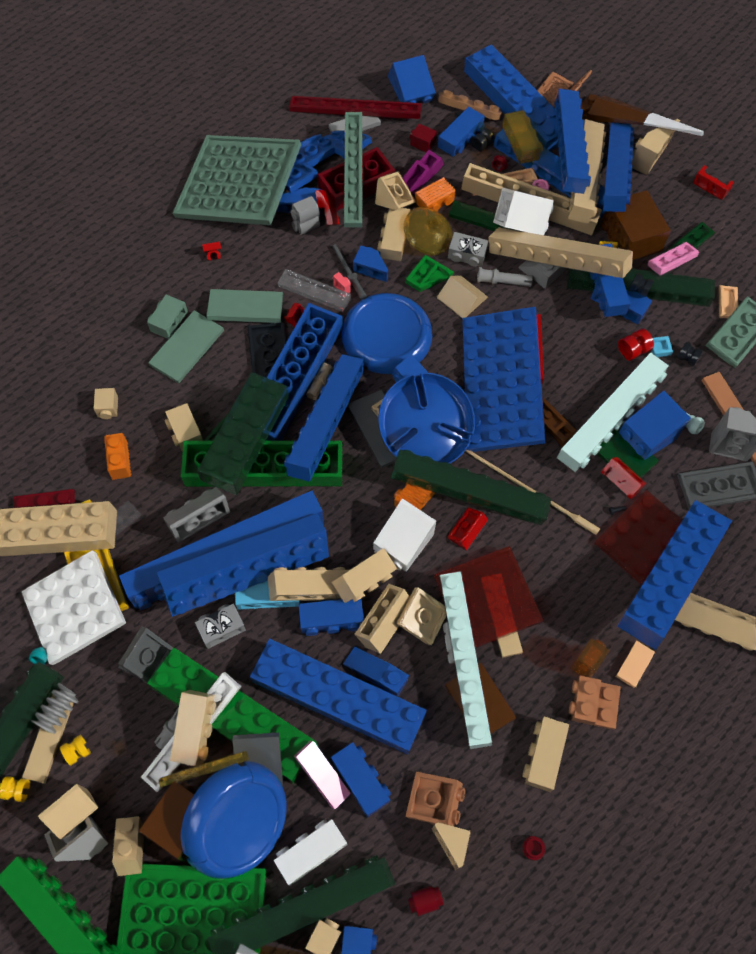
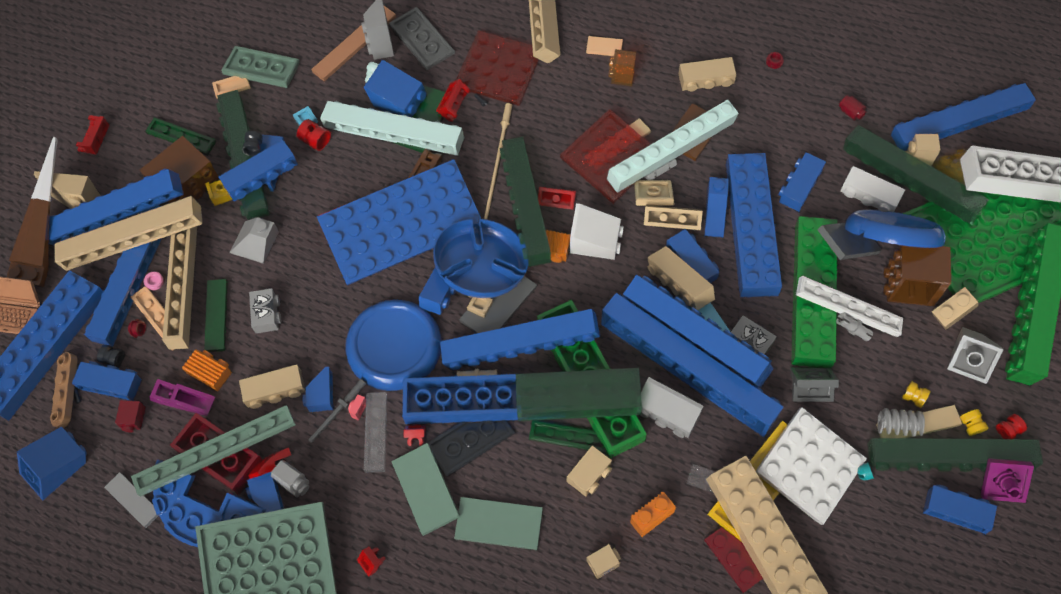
camera: 110 degrees left, 0 degrees up
(68, 811) = (961, 366): tan slope -> none
(167, 316) = (476, 559): sand green brick -> none
(193, 728) = (851, 296): tan brick -> none
(203, 768) = (876, 271): clear yellow tile -> none
(322, 774) = (817, 204): tile -> none
(365, 576) = (649, 243): tan brick -> none
(367, 107) = (109, 510): dark red tile -> none
(393, 192) = (227, 401): tan slope -> none
(427, 274) = (308, 336): green wing -> none
(428, 231) = (256, 355): clear yellow dish -> none
(435, 799) = (784, 128): nougat plate -> none
(453, 841) = (807, 99): tan slope -> none
(461, 296) = (321, 295): tan slope -> none
(495, 277) = (285, 275): light grey pin -> none
(522, 137) = (103, 308): clear yellow brick -> none
(523, 211) = (206, 270): white slope -> none
(561, 252) = (247, 216): tan brick -> none
(571, 141) = (101, 251): blue brick -> none
(595, 702) = (651, 60): nougat plate -> none
(673, 258) = (205, 134): bright pink tile -> none
(674, 575) = (527, 29): blue brick -> none
(689, 354) = (303, 94): black wheel -> none

